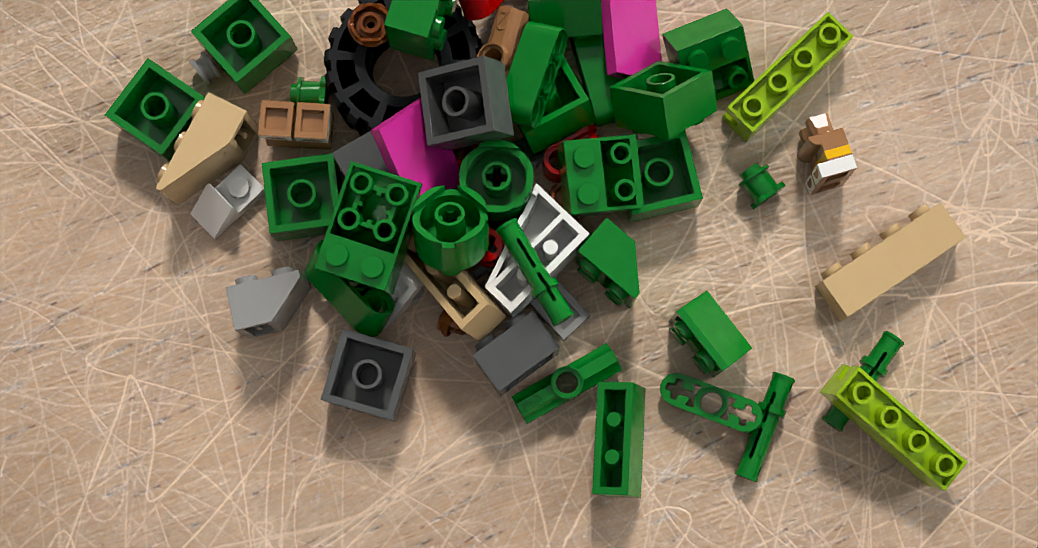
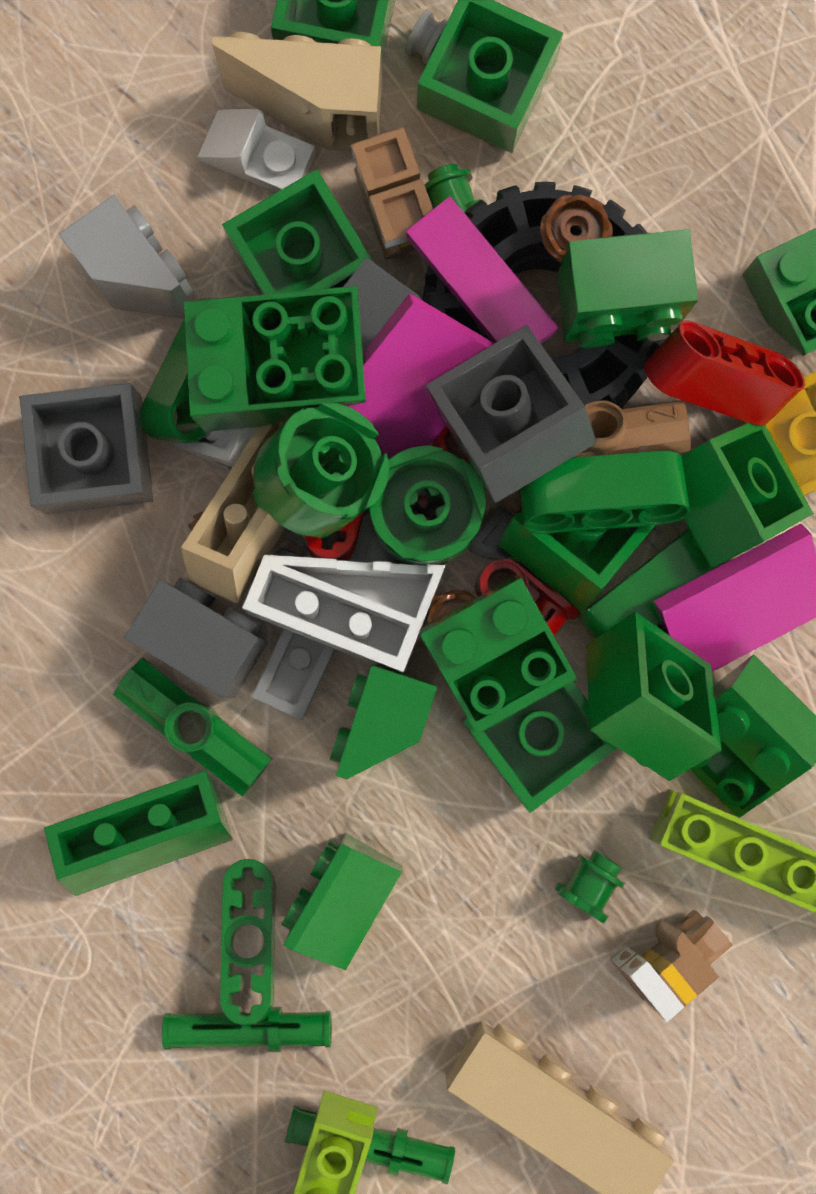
camera: 60 degrees right, 5 degrees up
(371, 93) = (477, 274): none -> dark pink tile
(535, 273) = (268, 674): green pin -> none

